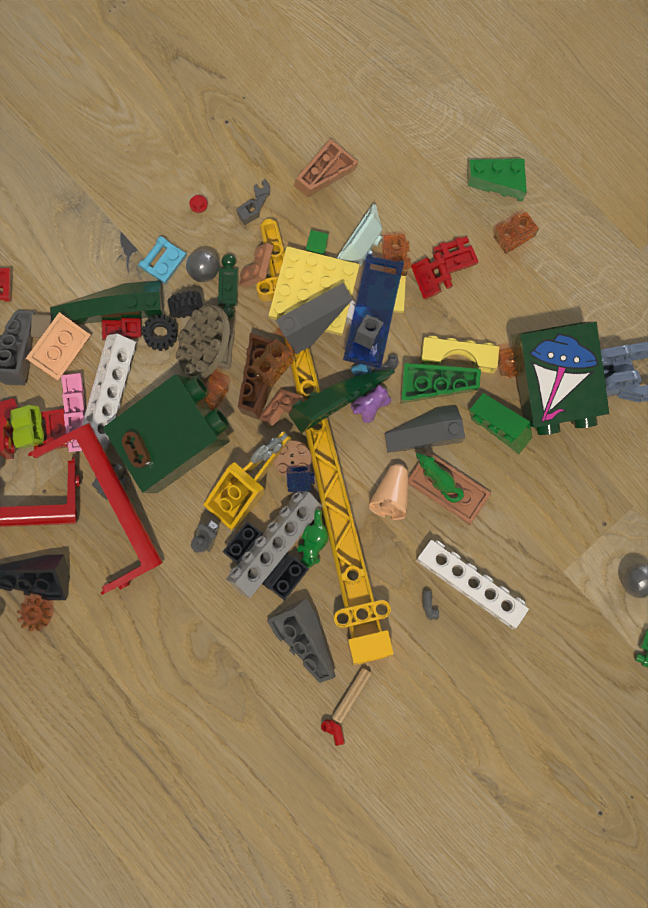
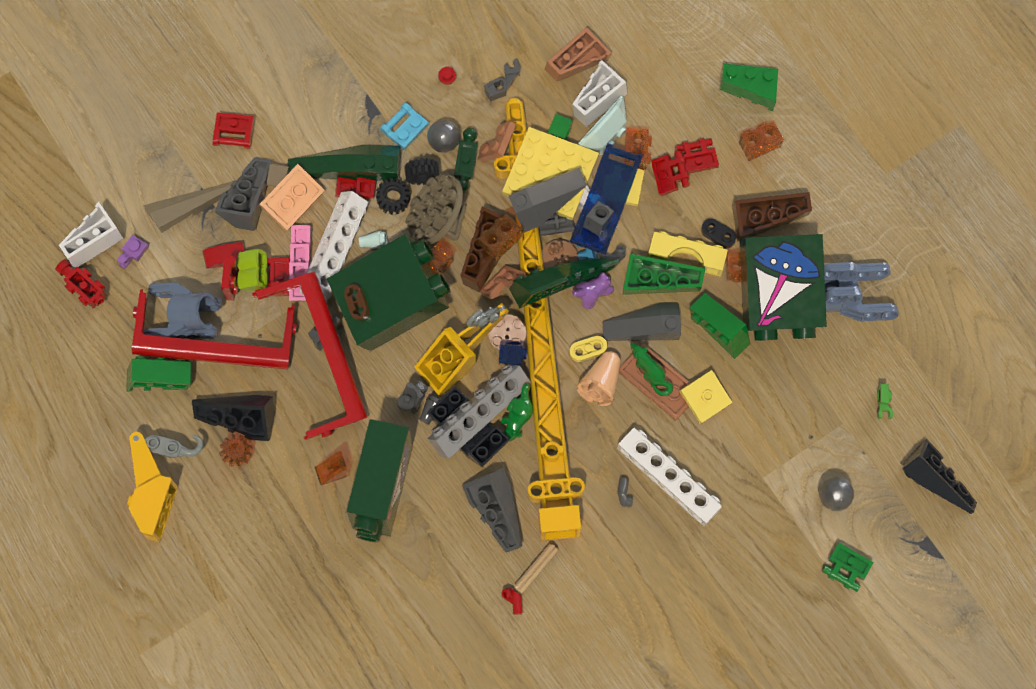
camera: 10 degrees right, 5 degrees down
(134, 621) = (332, 469): none -> clear orange slope
(146, 380) = (373, 240): none -> light aqua cone
(182, 631) = (379, 480): none -> dark green brick
(224, 540) = (432, 401): none -> dark grey cone
(327, 342) = (556, 225): none -> dark grey hips
(328, 367) = (556, 249): none -> medium nougat plate
(351, 205) = (599, 94): none -> white wedge
(374, 464) = (587, 348): none -> light yellow plate
(486, 331) = (718, 233): none -> black plate
(497, 497) = (705, 396): none -> light yellow plate
(532, 304) = (766, 213): none -> reddish brown wedge

